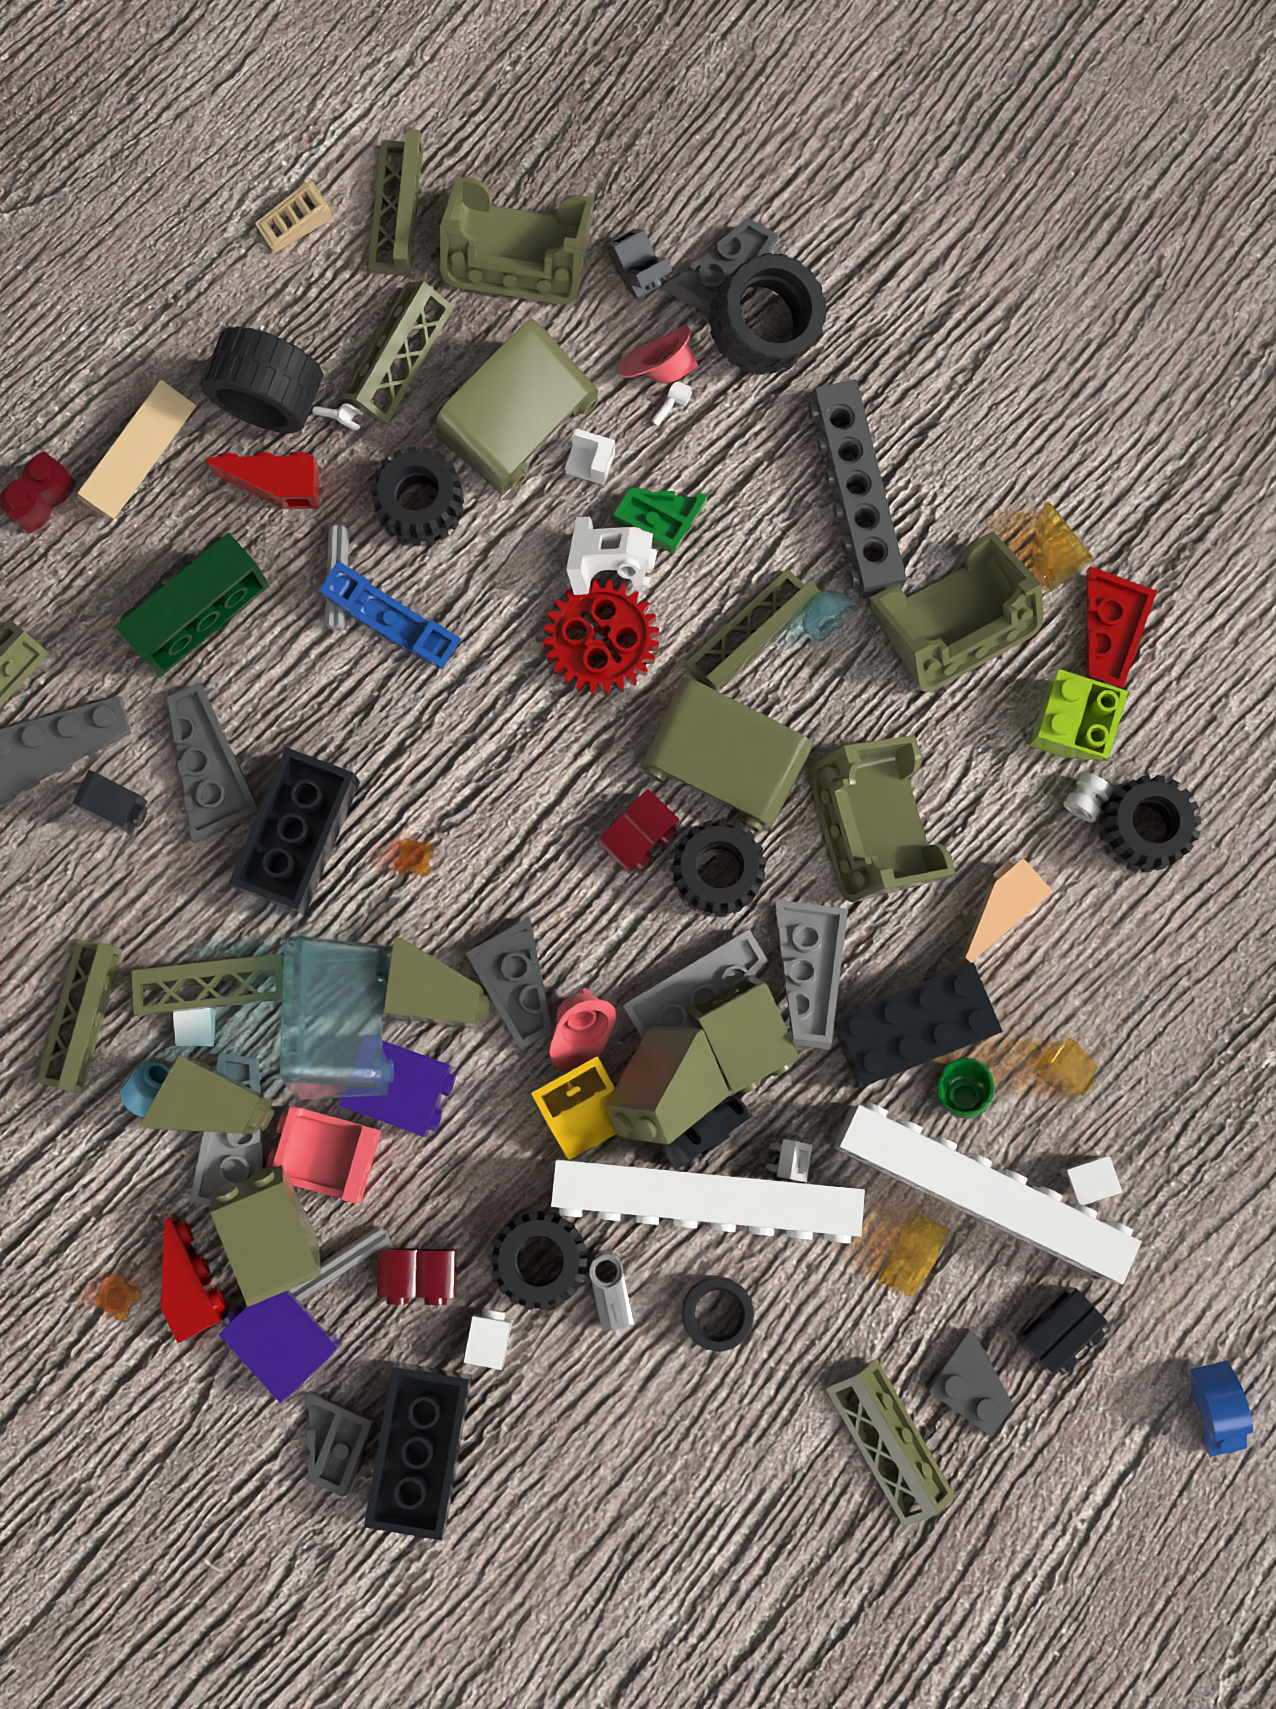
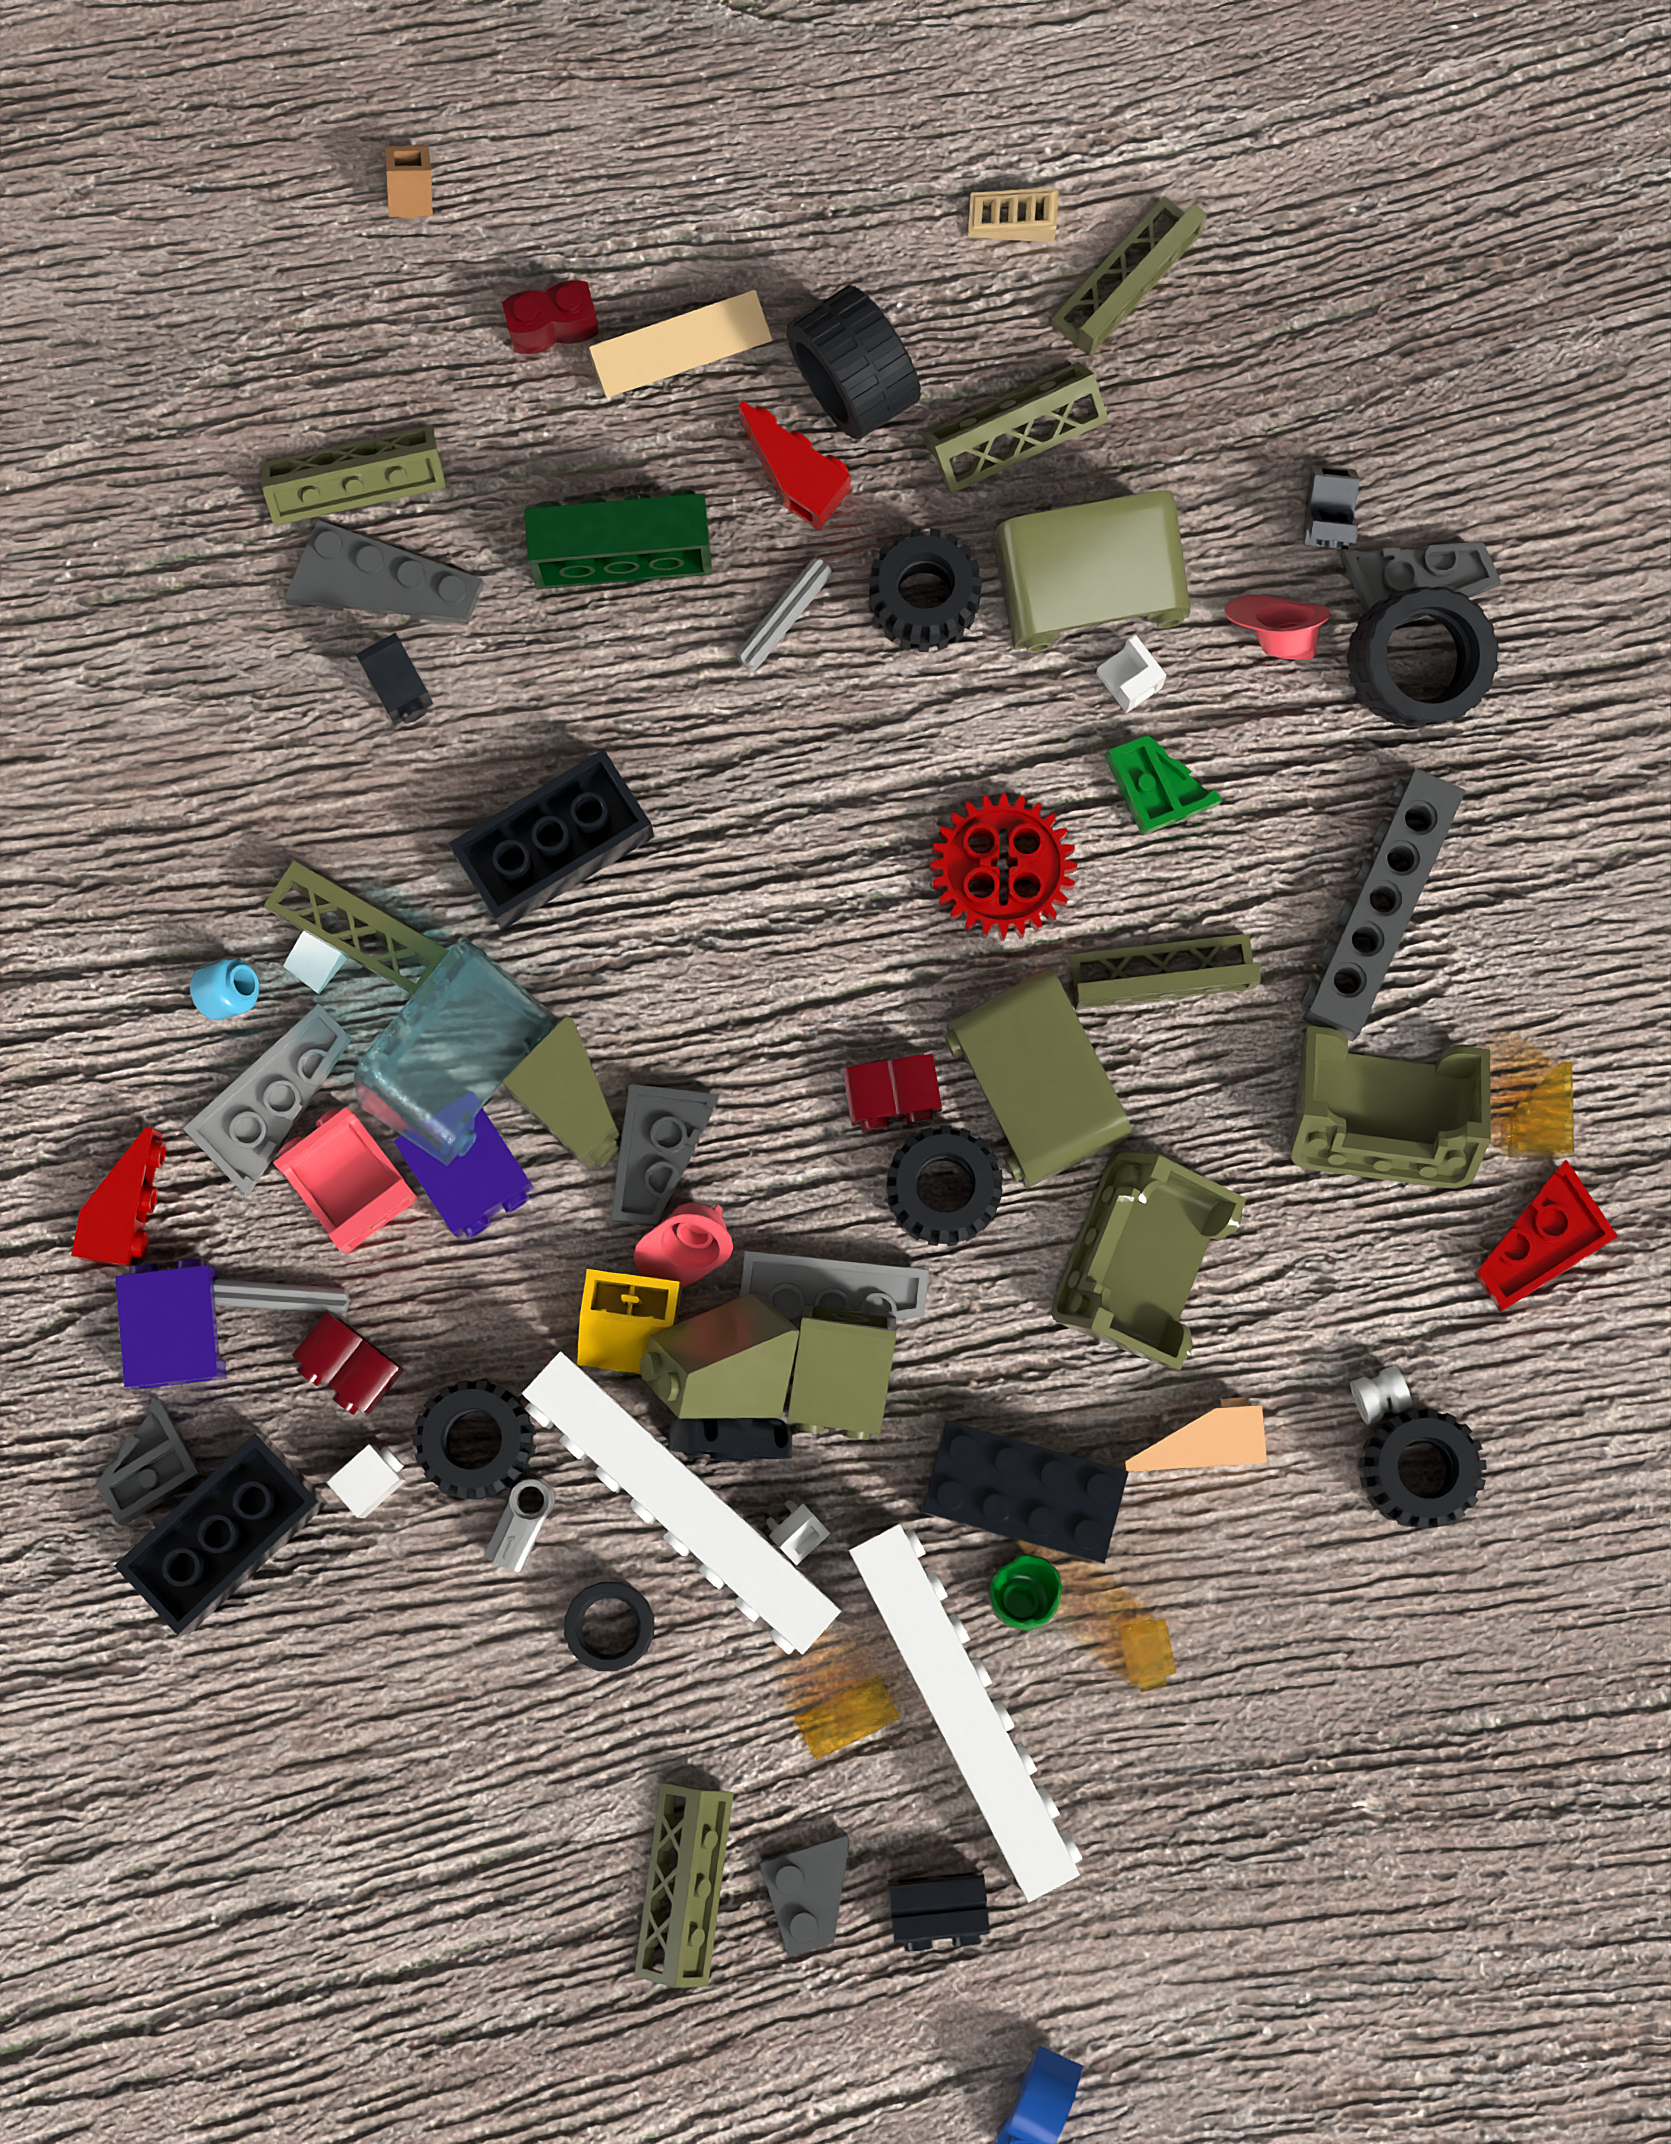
camera: 40 degrees right, 0 degrees up
(88, 1017) = (219, 875): olive fence -> none
(108, 1301) = (36, 1167): clear orange plate -> none
(206, 1101) = (269, 1040): olive slope -> none
(210, 773) = (514, 723): dark grey wing -> none
(266, 1234) = (231, 1213): olive slope -> none
(343, 414) = (912, 452): white hand -> none
(388, 617) = (805, 691): blue slope -> none
(409, 848) = (649, 939): clear orange plate -> none
(513, 248) = (1214, 401): olive windscreen -> none
(609, 549) = (1049, 776): white tile -> none
(678, 393) = (1272, 672): white hand -> none
(811, 963) = (965, 1351): light grey wing -> none
(824, 614) = (1249, 1009): clear light blue hair -> none
(1078, 717) = (1433, 1306): lime slope -> none
(1092, 1179) = (1084, 1782): white panel -> none

